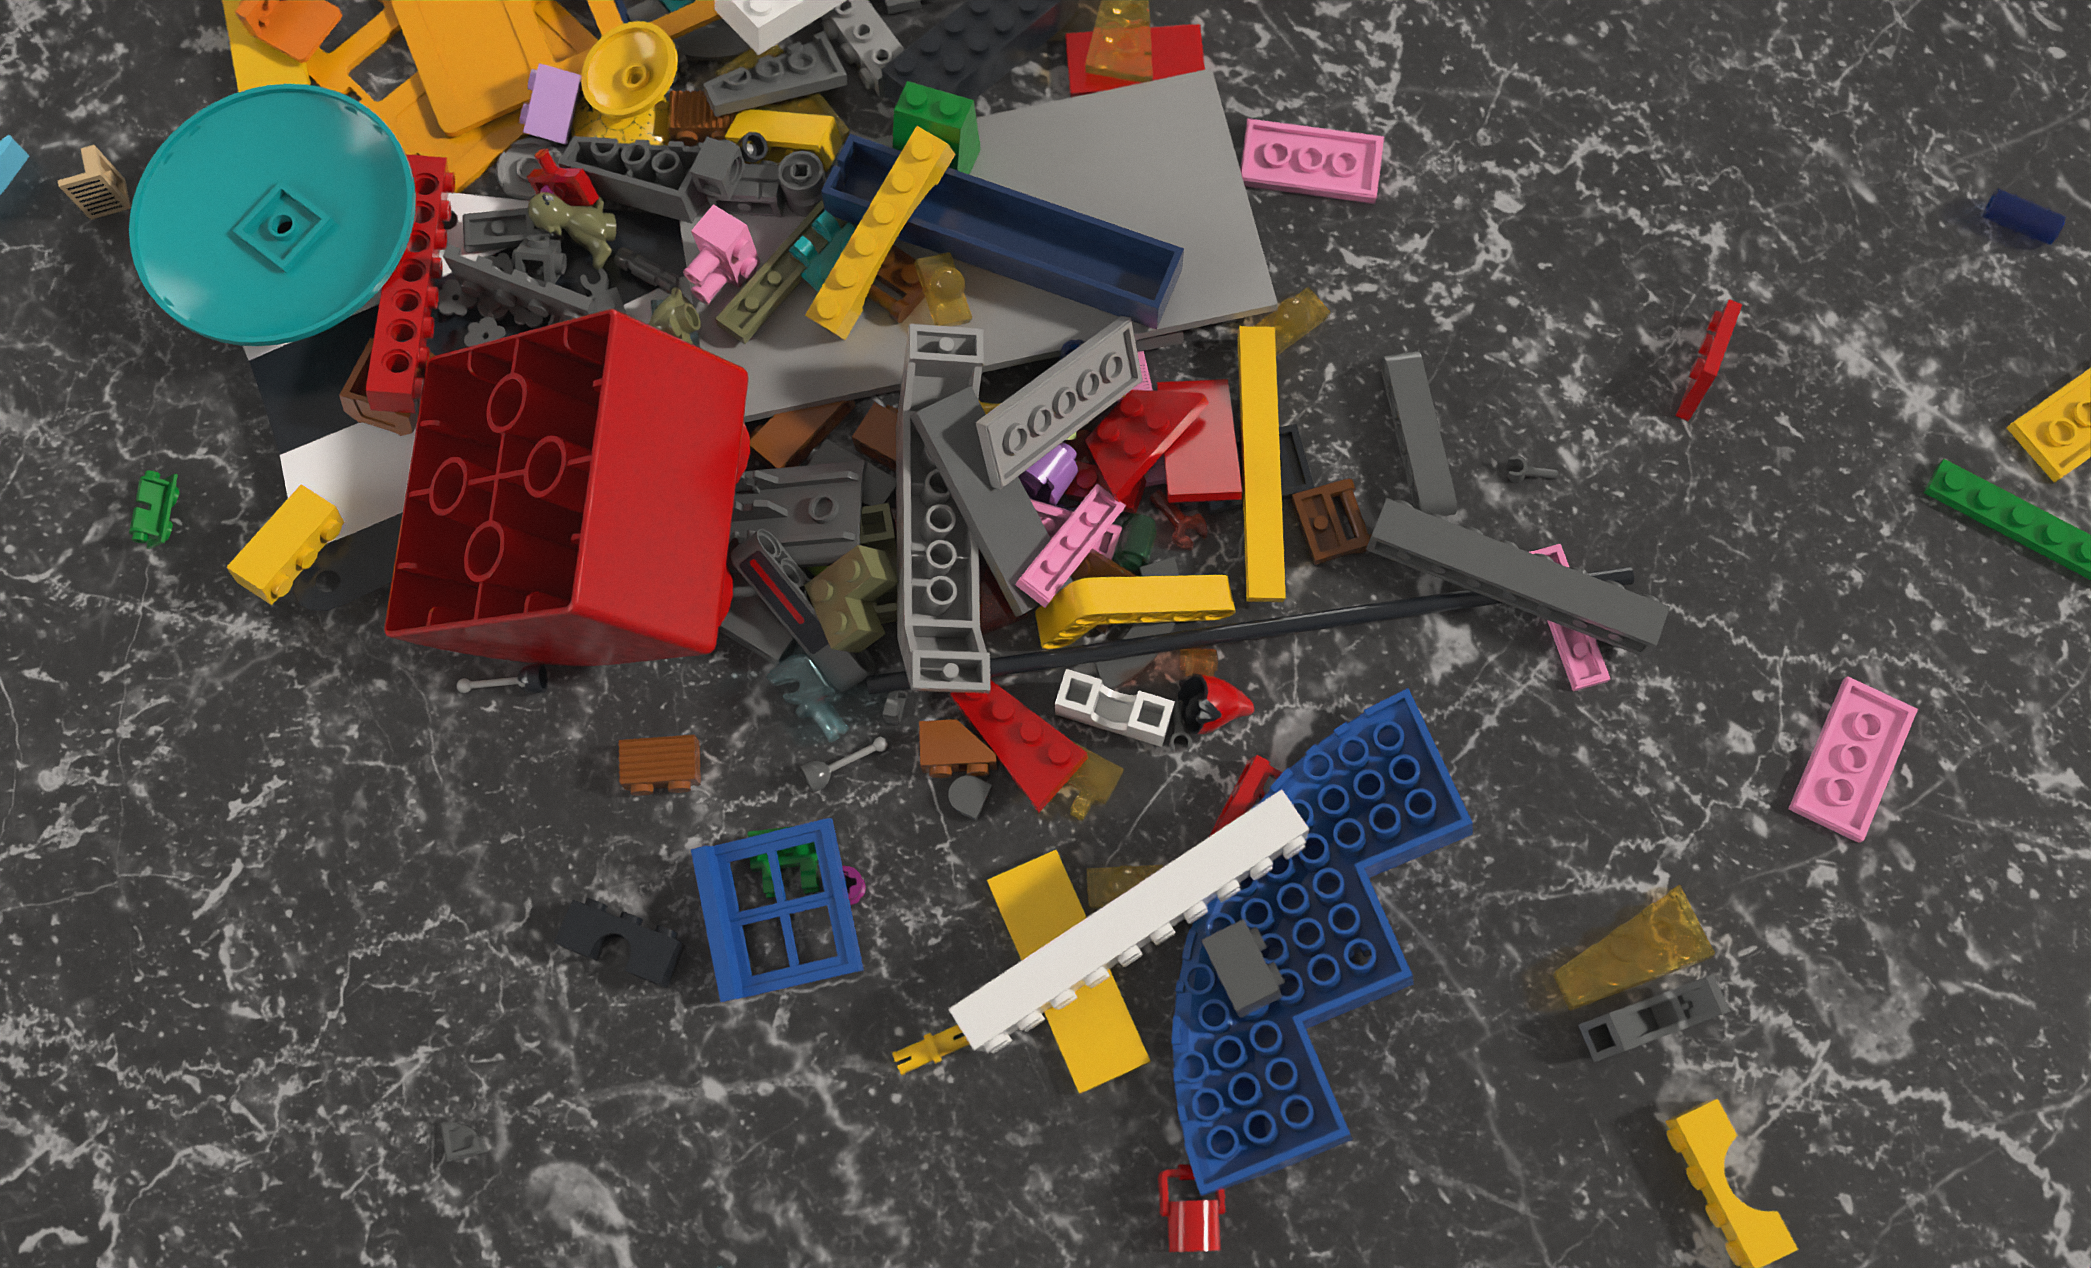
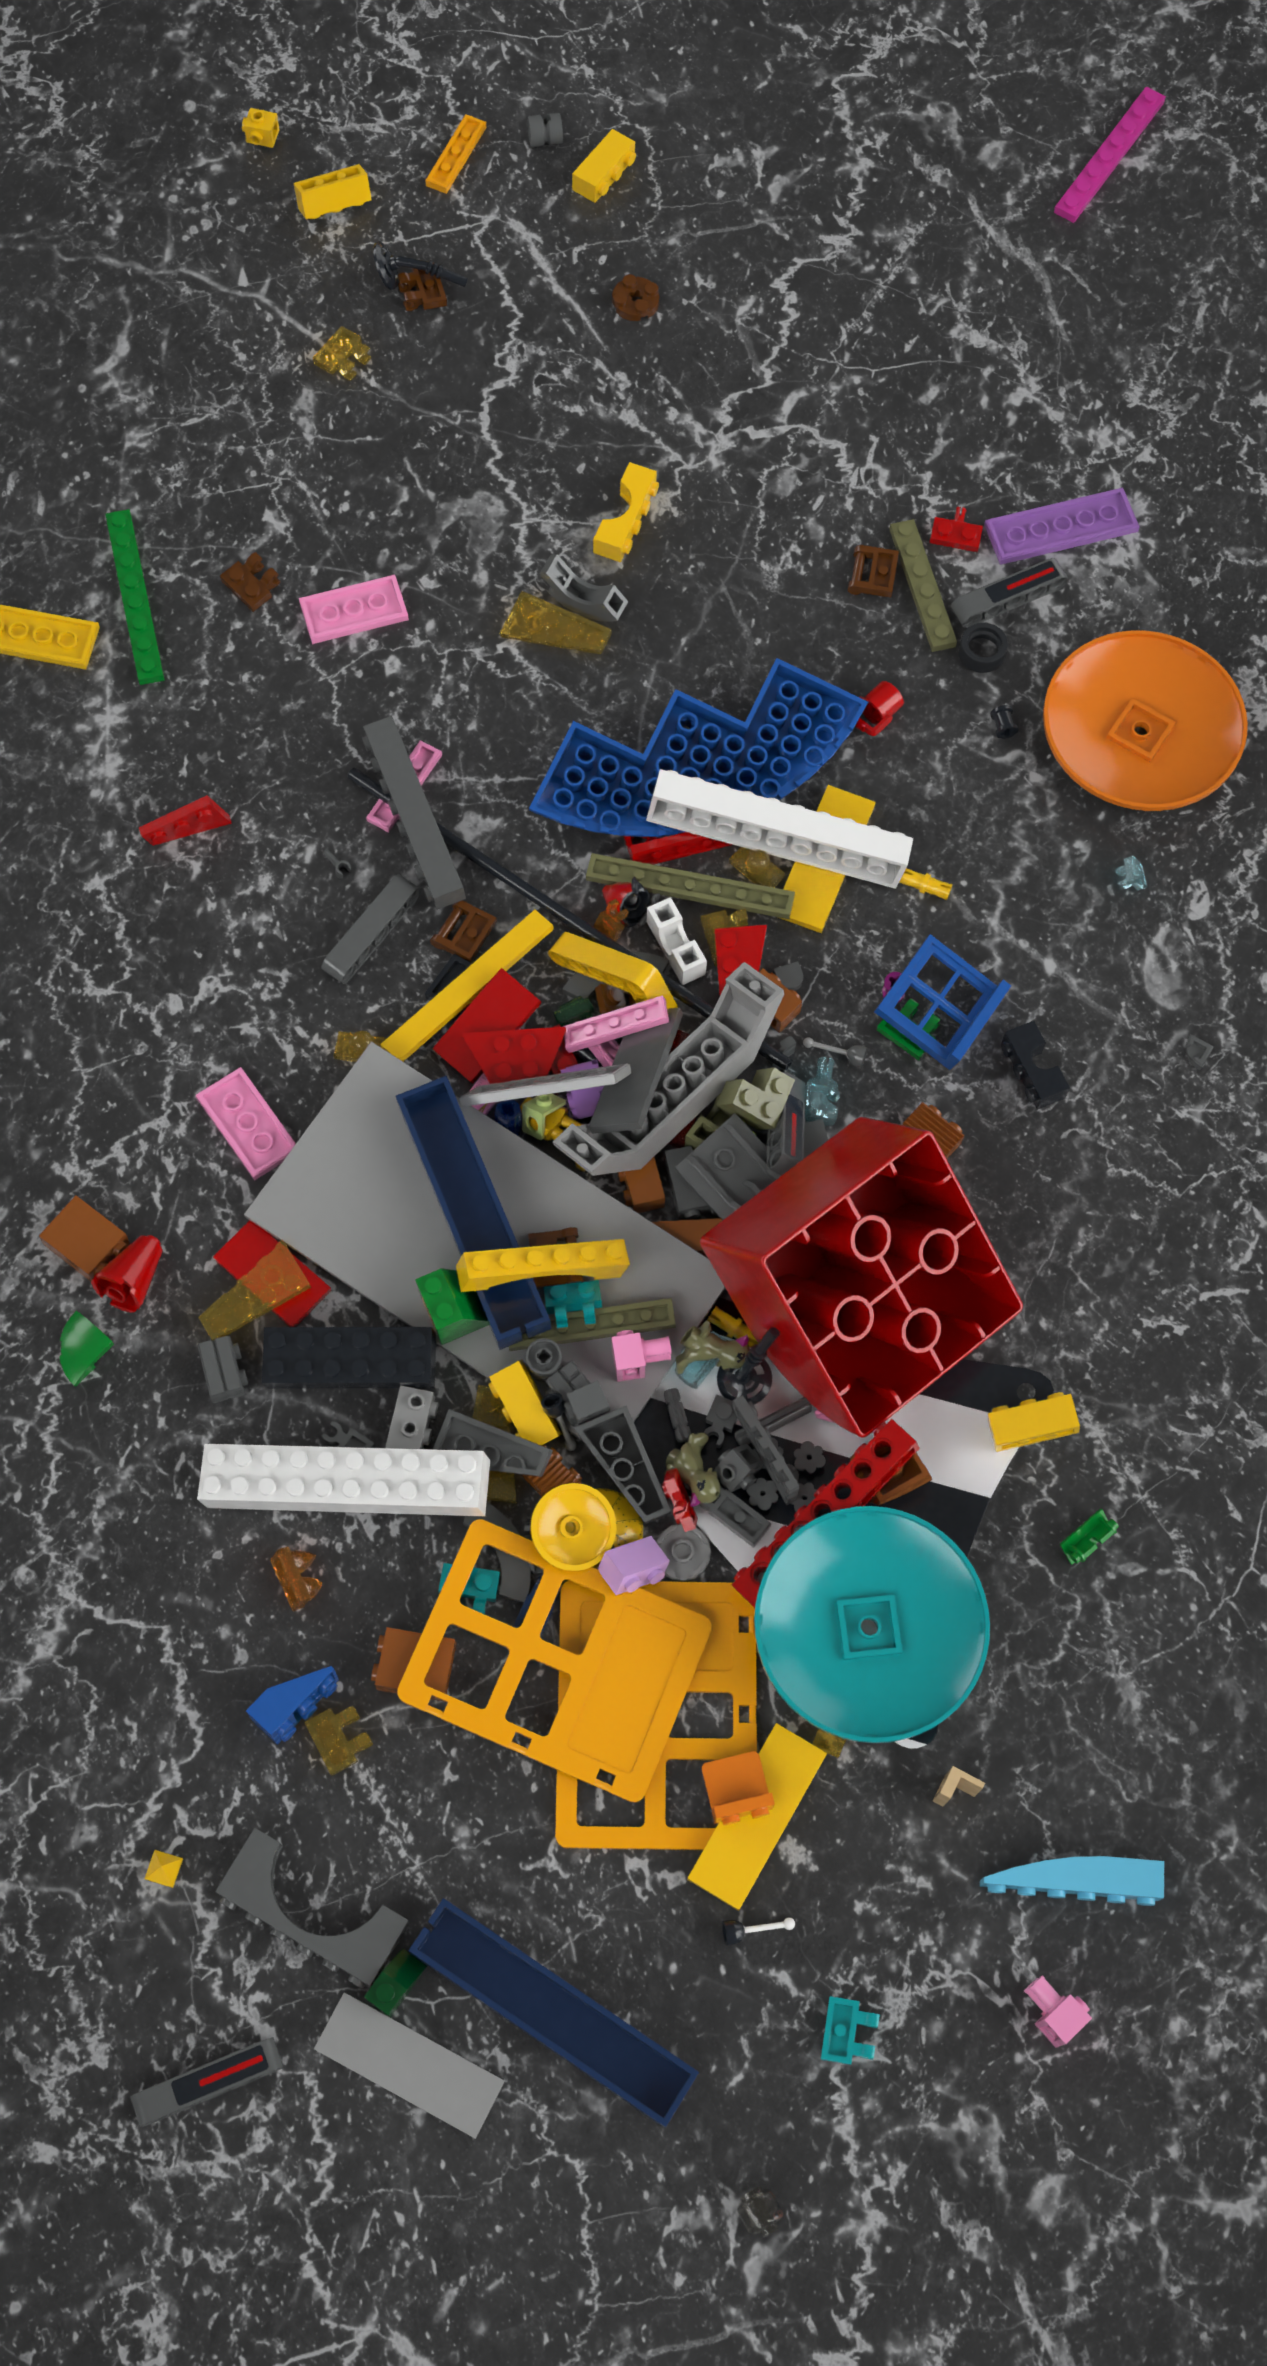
camera: 140 degrees left, 5 degrees down
(943, 289) = (536, 1216): clear yellow tile -> none
(1164, 787) = (692, 886): none -> olive plate
(1180, 522) = (538, 1013): clear red bar -> none
(1242, 967) = (748, 763): dark grey piece -> none
(1985, 670) = (246, 586): none -> reddish brown plate

